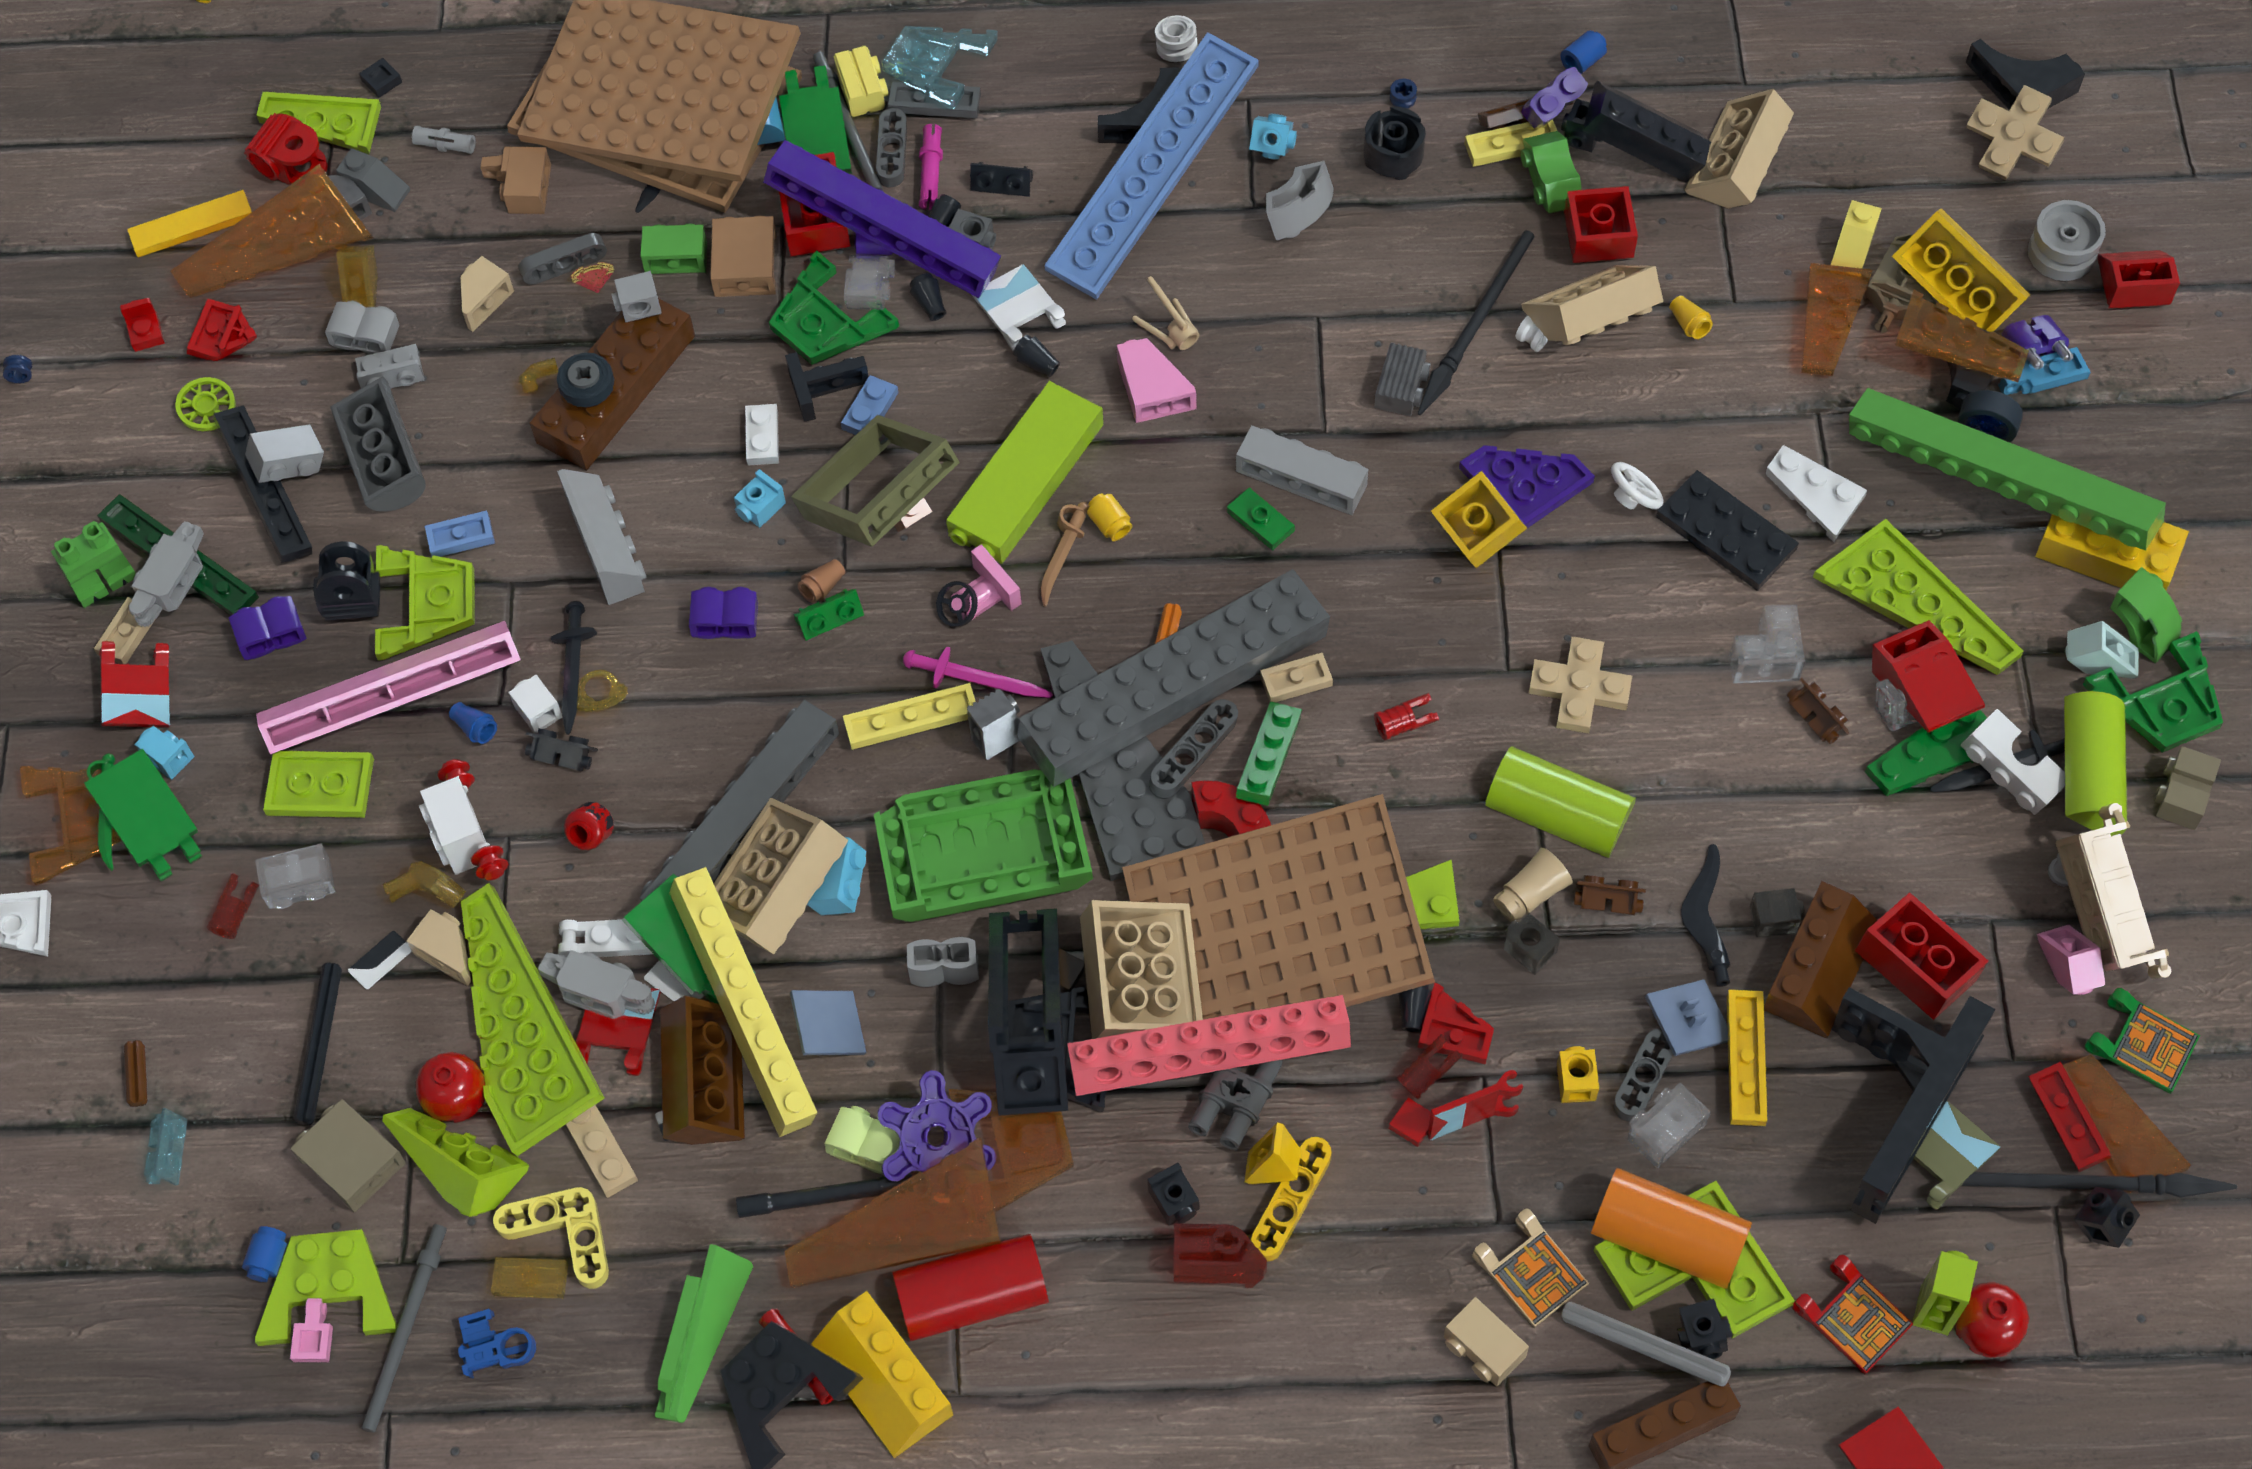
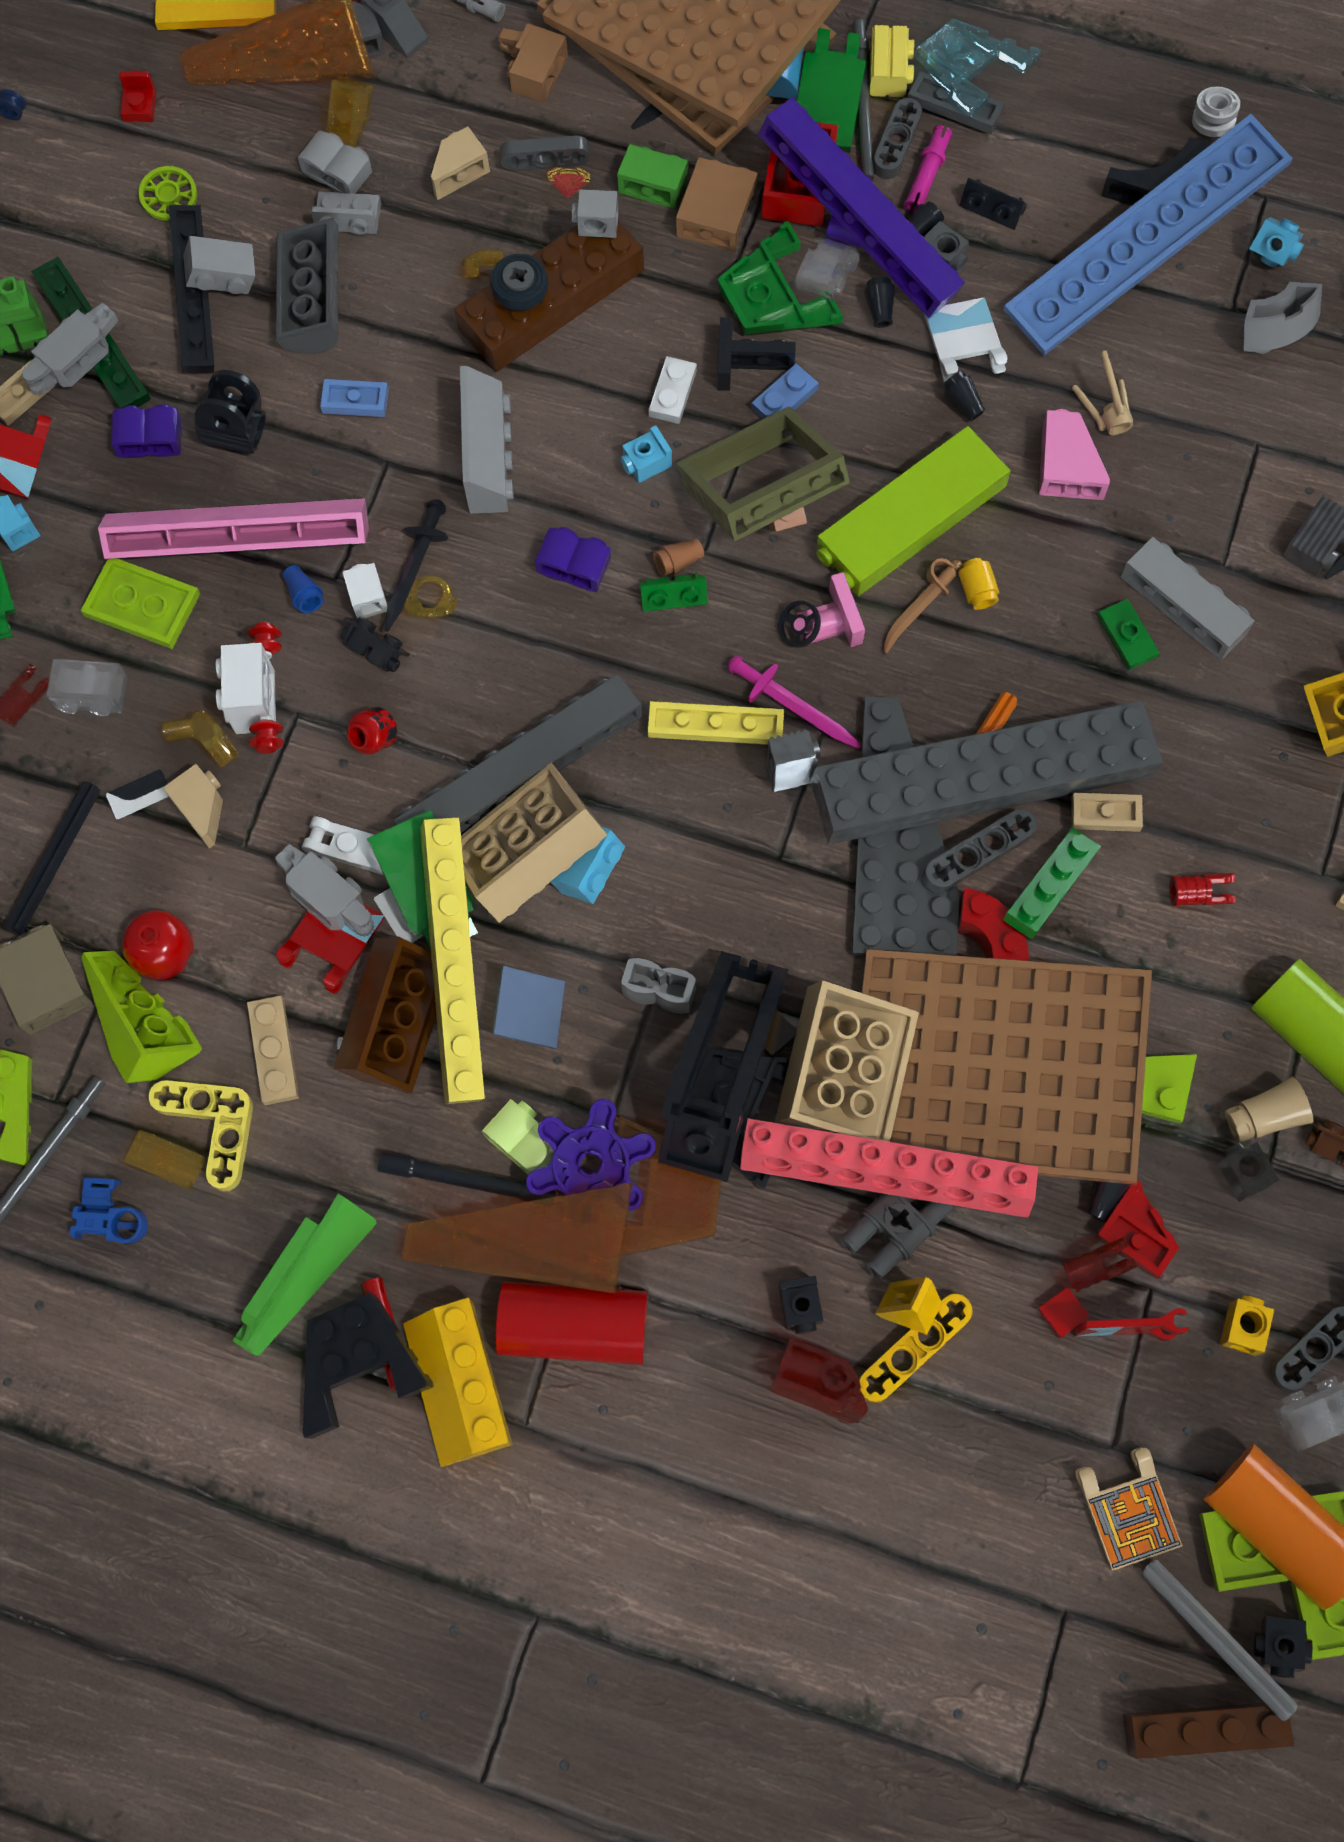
camera: 20 degrees right, 10 degrees up
(220, 331) = (205, 126): red slope -> none
(438, 599) = (312, 457): lime wing -> none
(528, 1054) = (238, 941): lime wing -> none
(981, 845) = (738, 878): bright green slope -> none
(1486, 1342) = (1057, 1572): tan brick -> none

